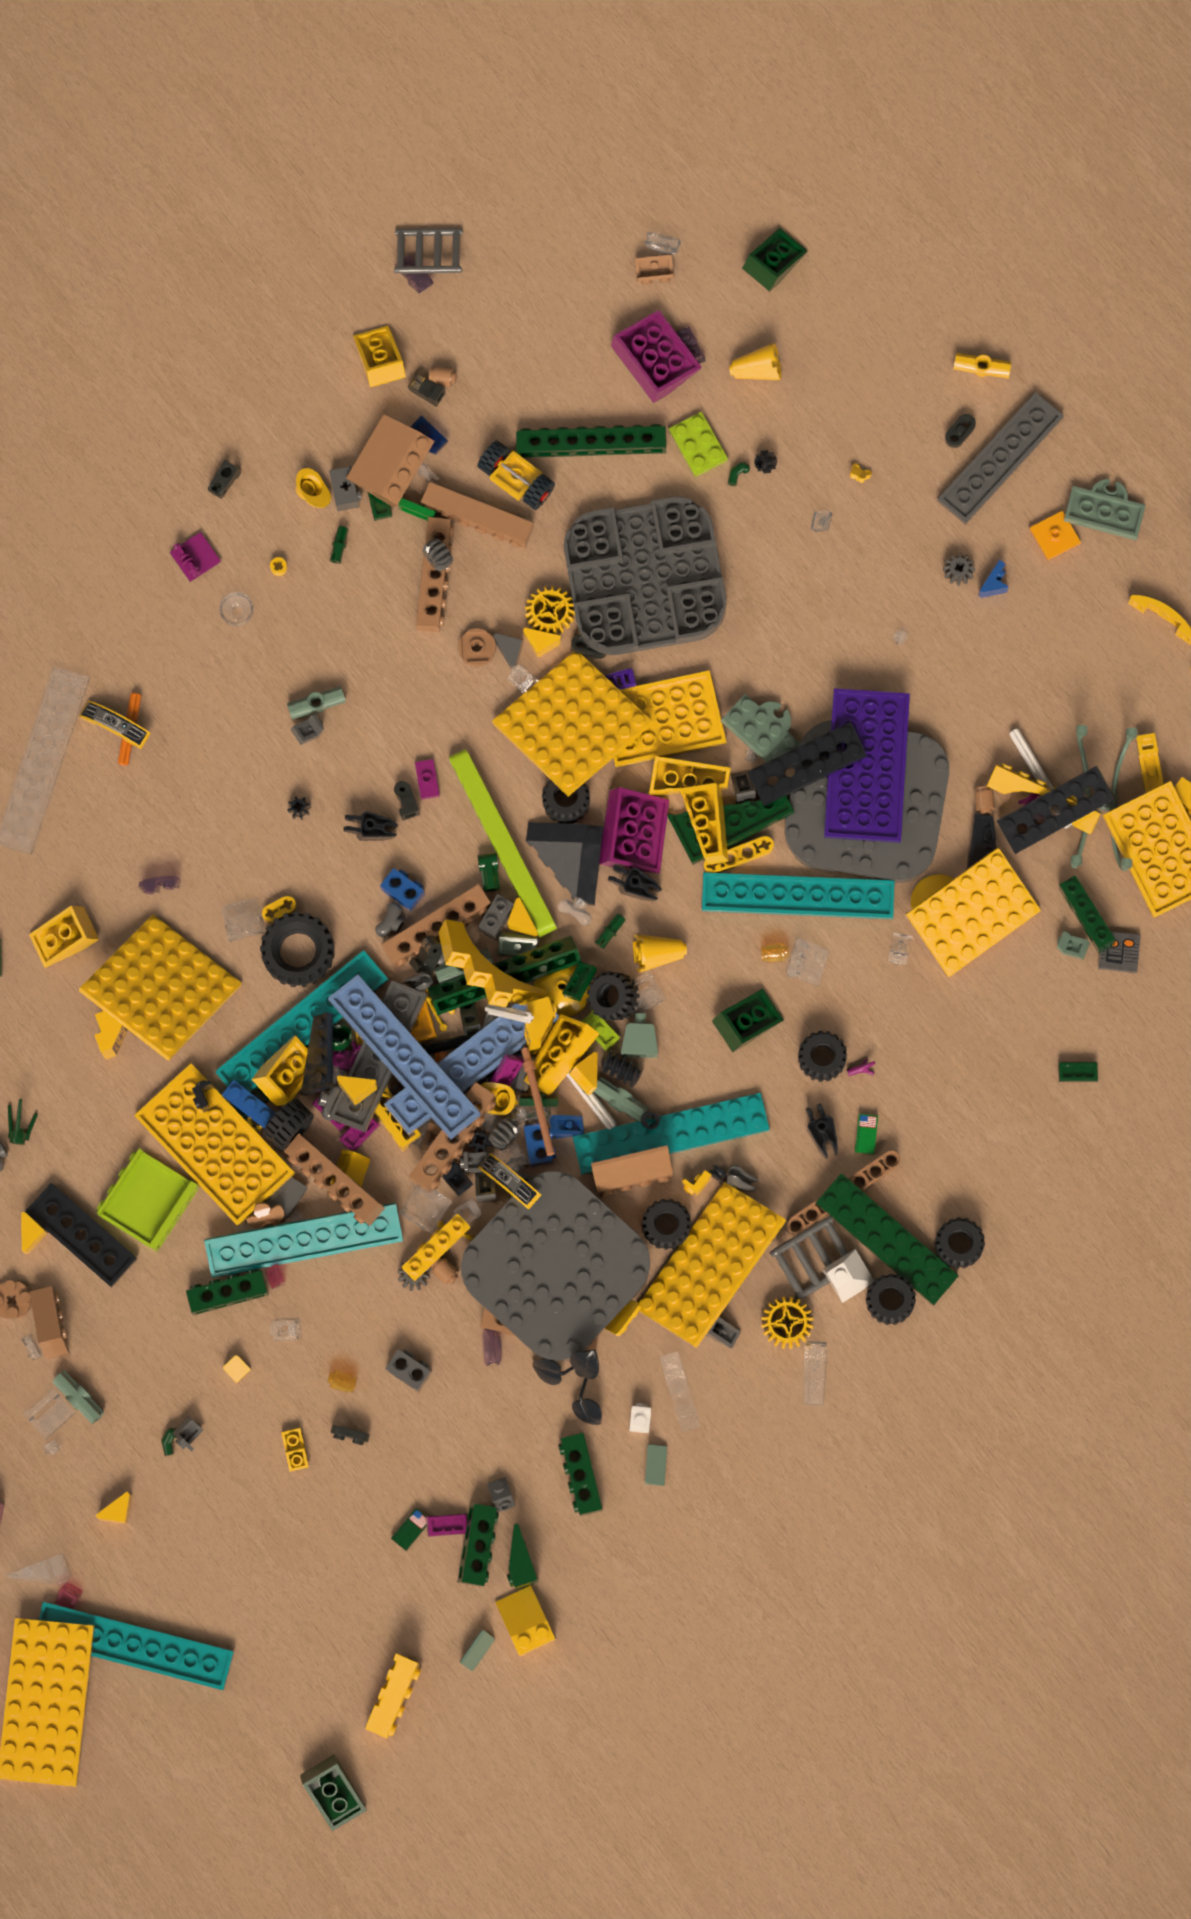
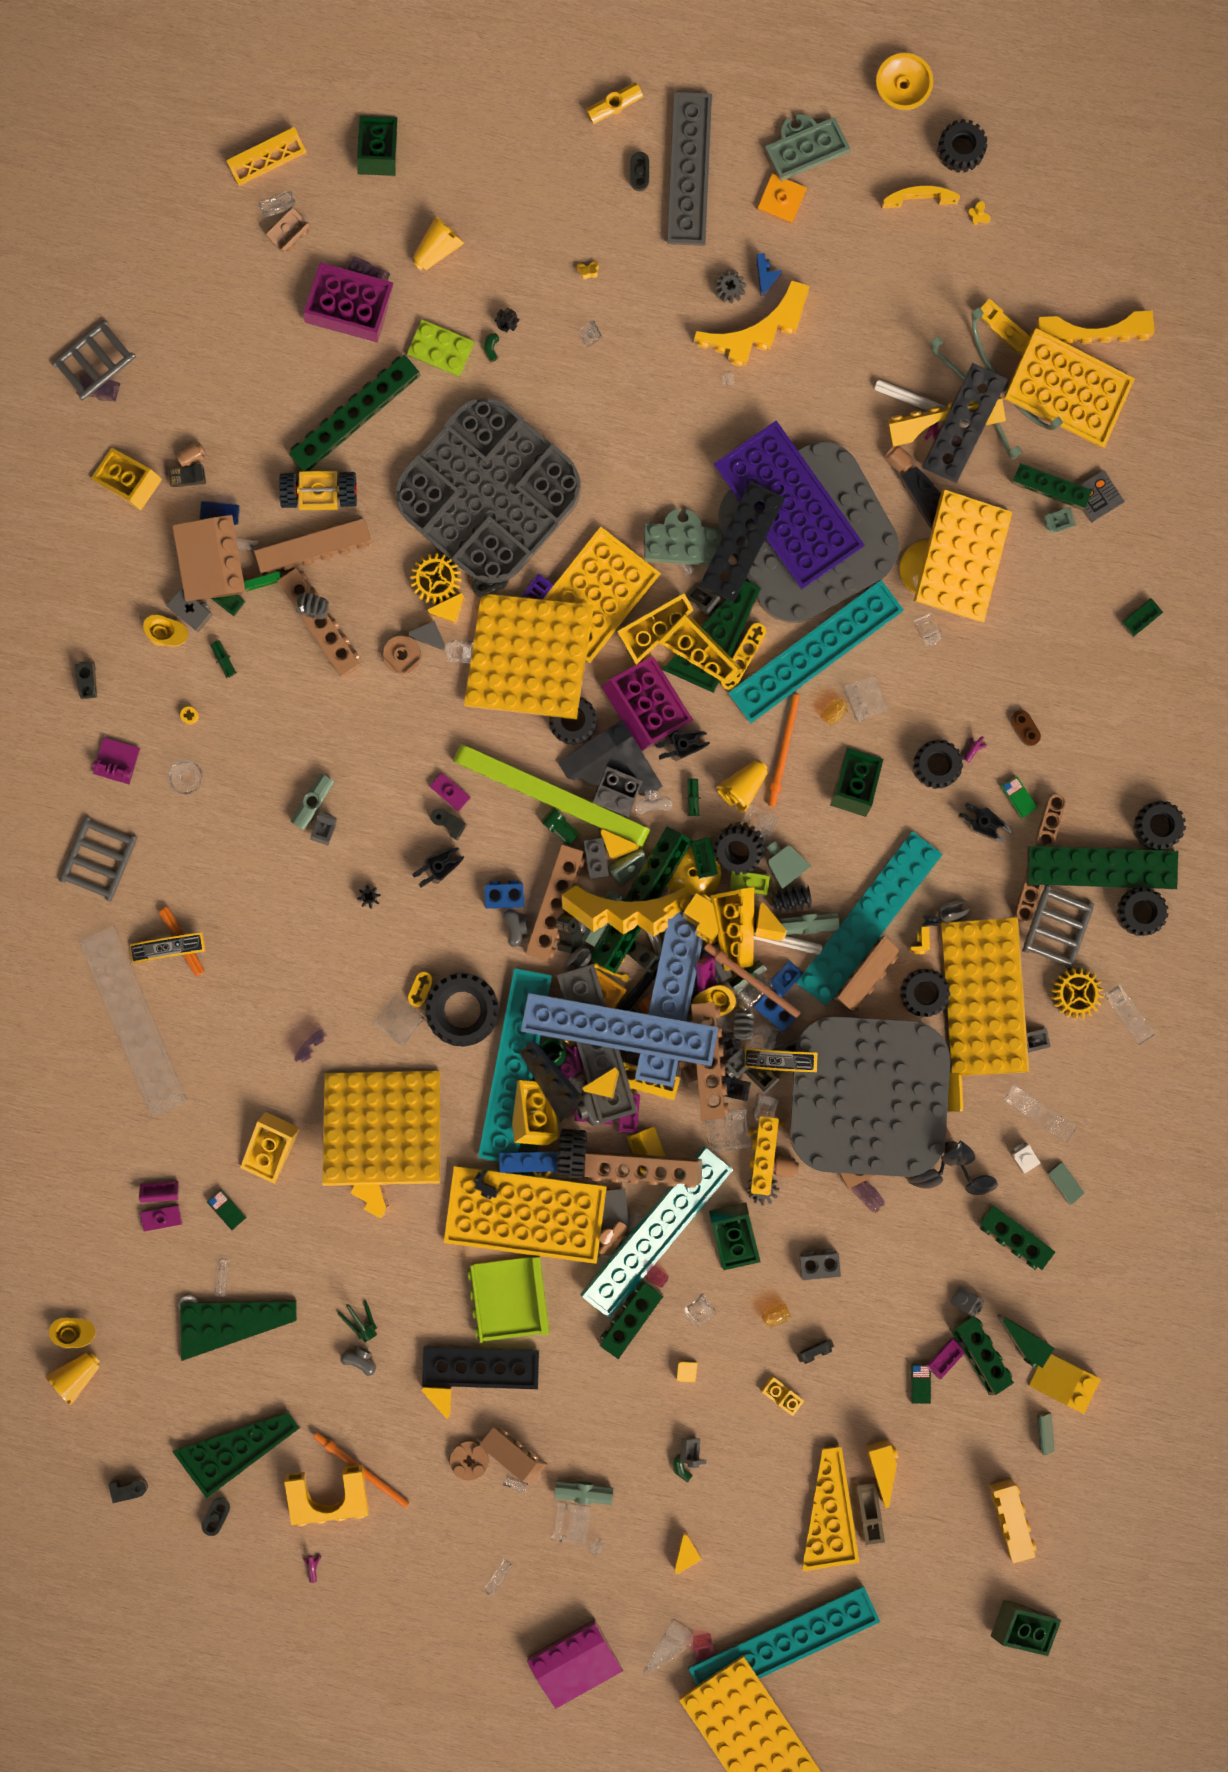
camera: 45 degrees left, 10 degrees up
(101, 604) = (73, 859): none -> dark grey bar
(249, 1581) = (831, 1525): none -> yellow wing
(285, 1600) = (870, 1515): none -> dark tan slope
(327, 1565) = (883, 1463): none -> yellow slope
(361, 1293) = (734, 1236): none -> dark green slope
(509, 1013) = (677, 928): white axle -> none
(554, 879) = (617, 792): none -> flat silver slope
(654, 1116) = (841, 922): black bush -> none
(681, 974) = (775, 787): none -> orange bar
(684, 196) = (263, 149): none -> yellow fence
(848, 1275) = (1094, 919): white slope -> none
(915, 1084) = (1025, 728): none -> reddish brown plate
(931, 618) = (762, 334): none -> yellow arch

